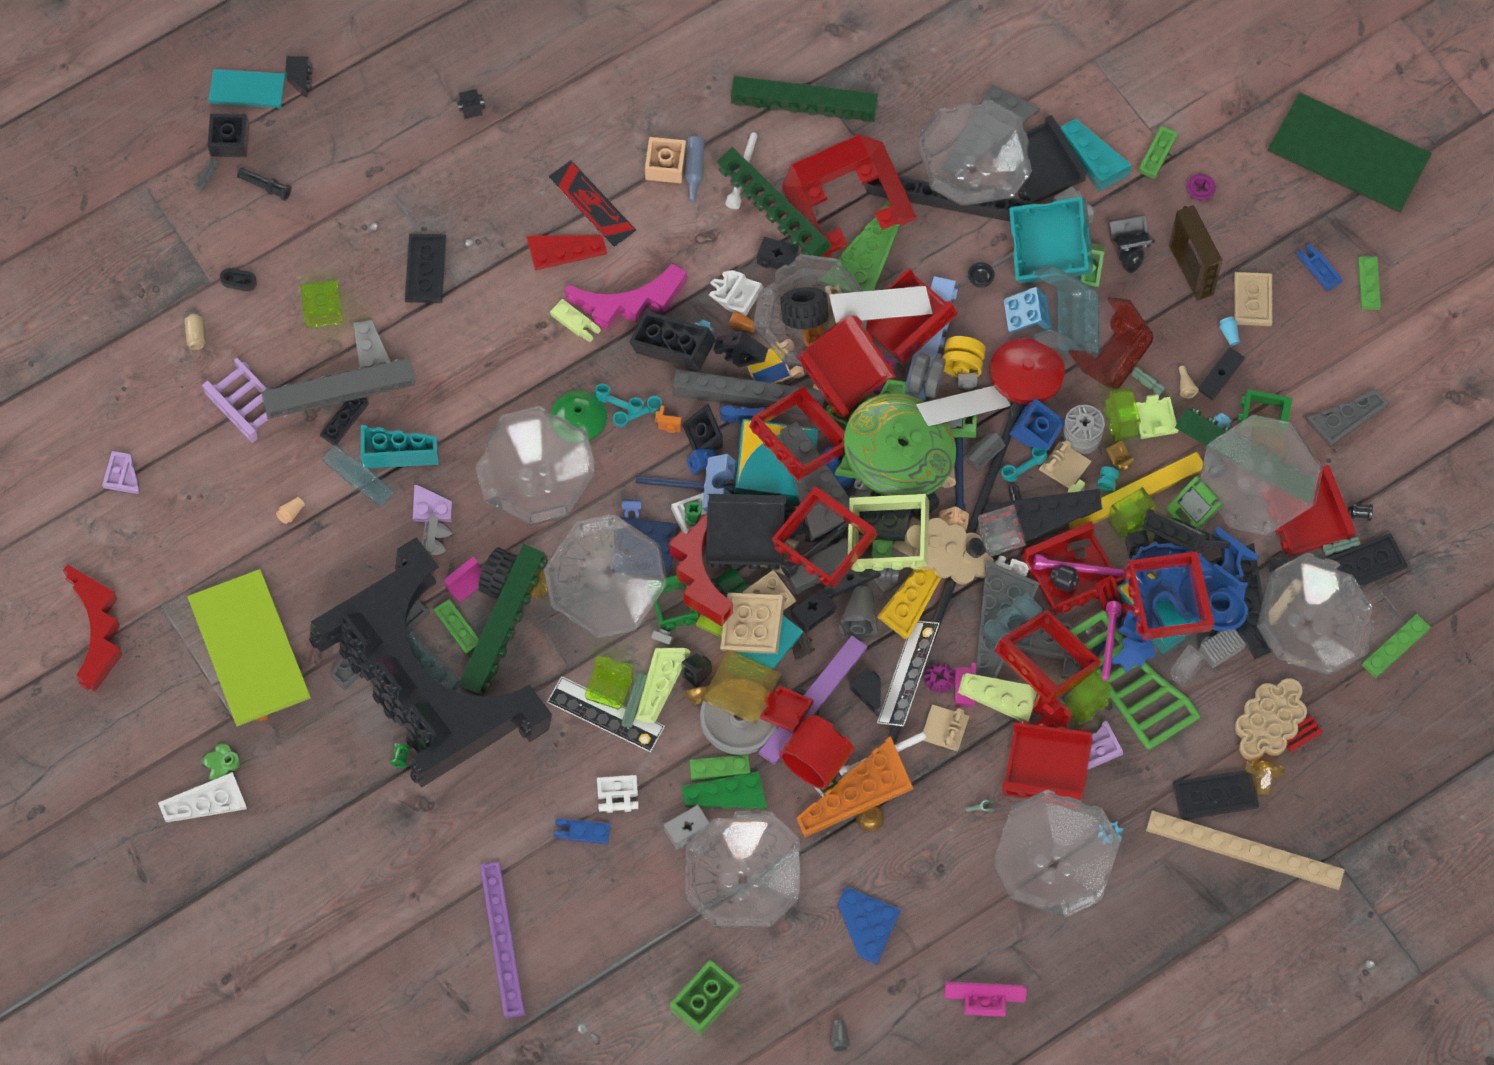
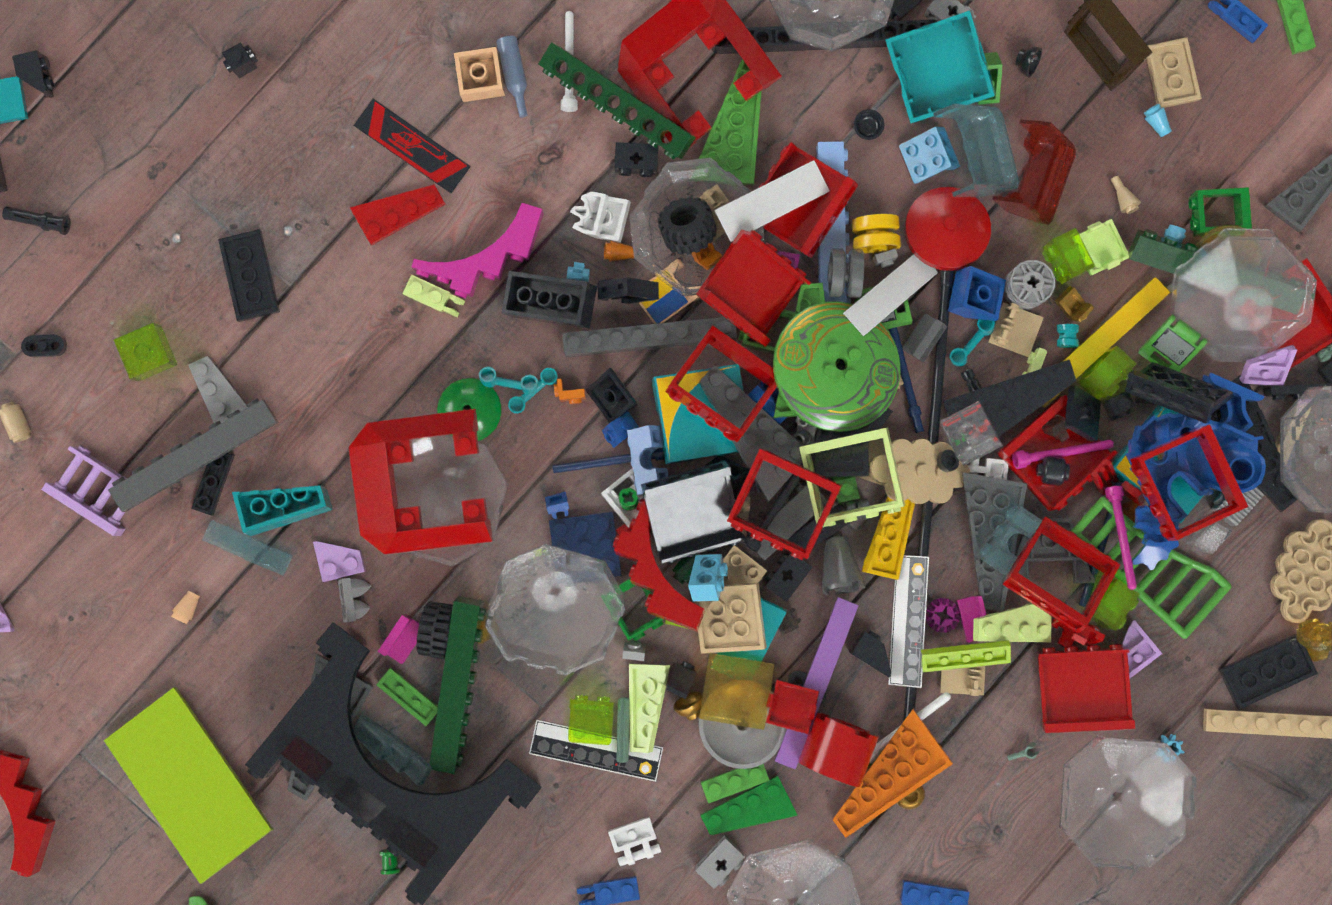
camera: 10 degrees left, 20 degrees up
(496, 477) = (378, 514): none -> red slope
(736, 415) = (653, 362): blue hinge -> none
(742, 581) = (707, 577): none -> medium azure brick
(948, 705) = (966, 656): none -> lime plate
(955, 516) = (911, 428): light nougat bracket -> none
(1103, 540) = (1082, 413): none -> black plate
(1130, 232) = (1022, 31): black bracket -> none
(1148, 381) = (1082, 204): sand green axle -> none
(1226, 366) = (1164, 164): black tile -> none
(1272, 540) = (1269, 368): none -> lavender wing

